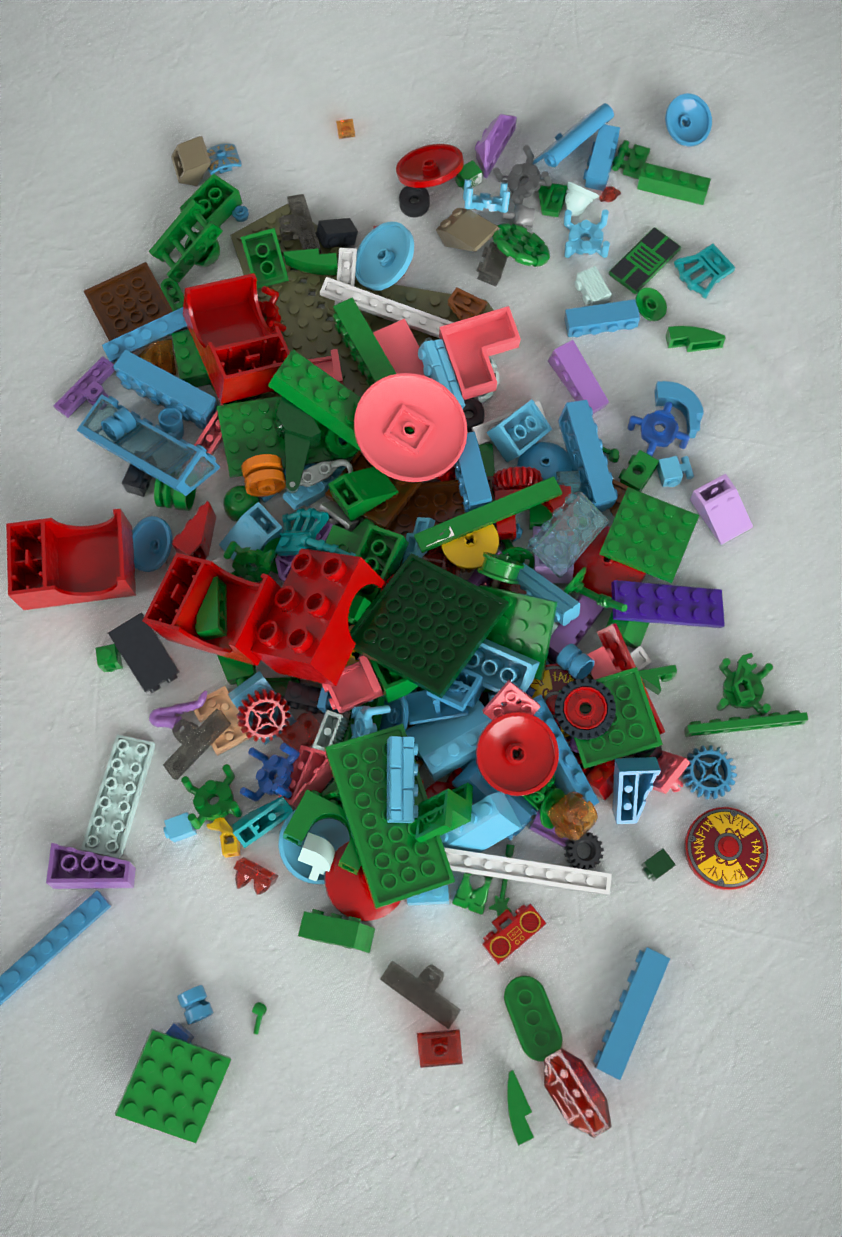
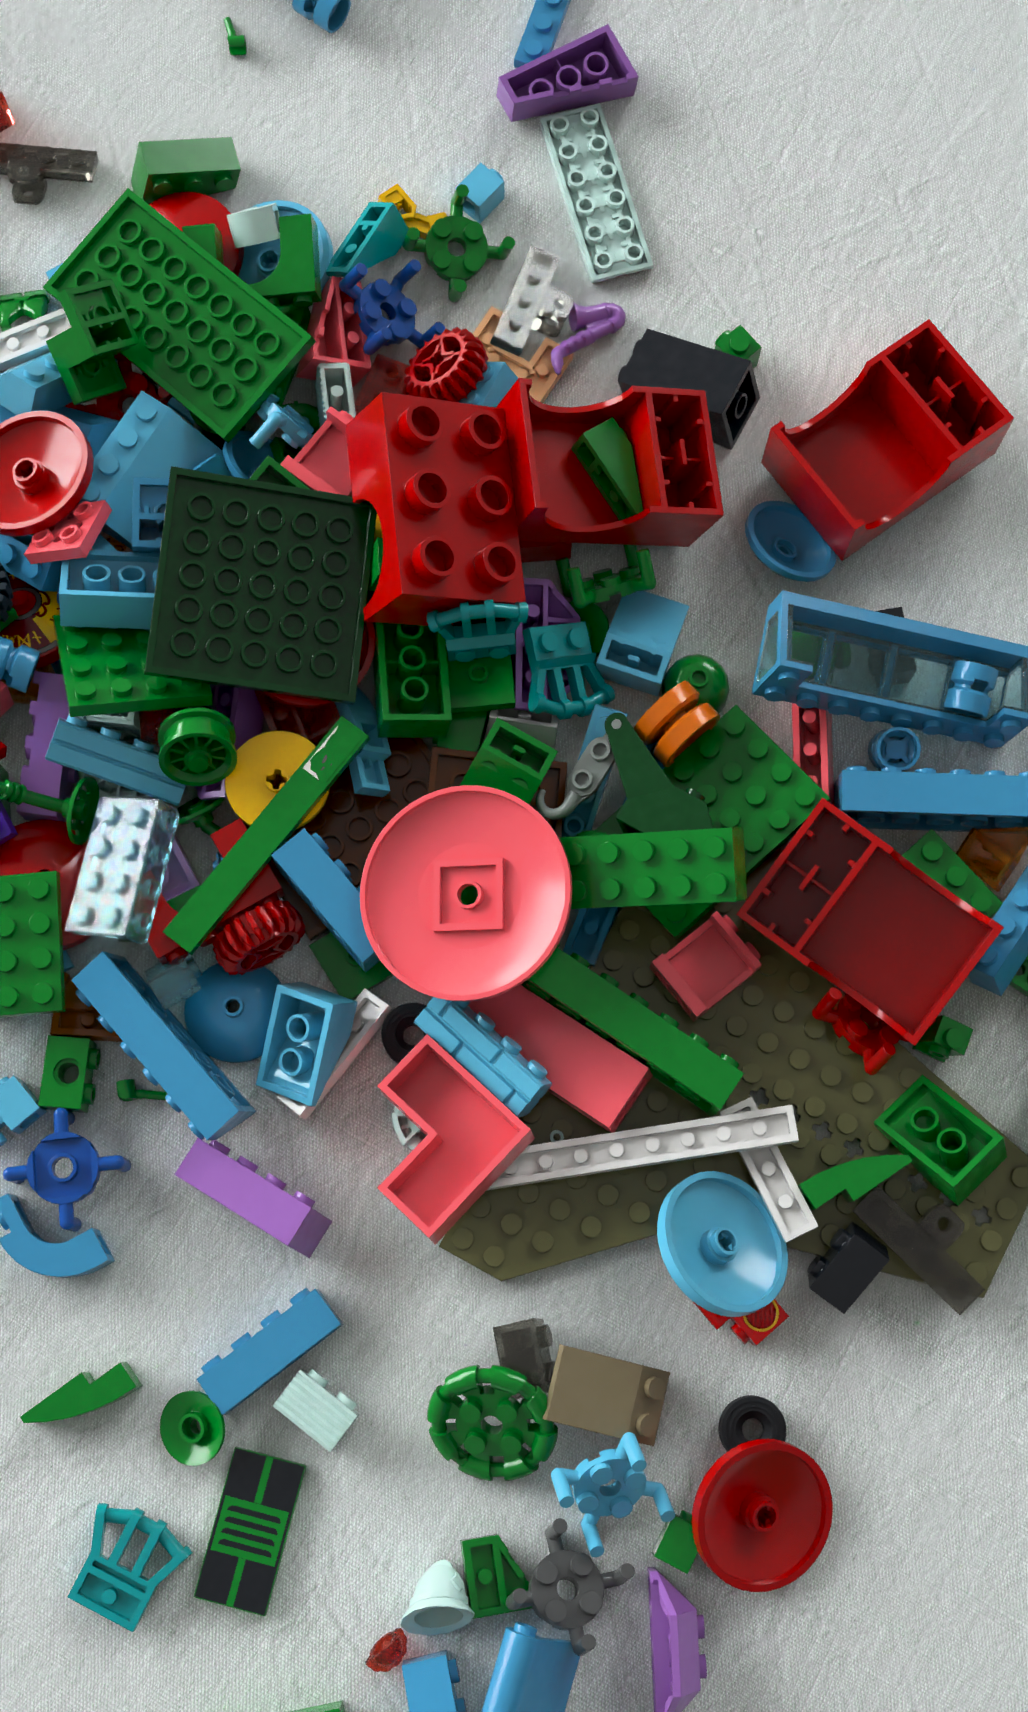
camera: 145 degrees right, 5 degrees up
(197, 534) = (723, 585): red slope -> none
(250, 870) = (339, 189): clear red tile -> none
(345, 128) = (982, 1529): clear orange plate -> none
(400, 779) = (179, 354): medium azure brick -> none
(465, 304) = (522, 1233): dark orange wing -> none
(521, 216) = (528, 1504): light grey piece -> none
(588, 229) = (385, 1545): medium azure plate -> none

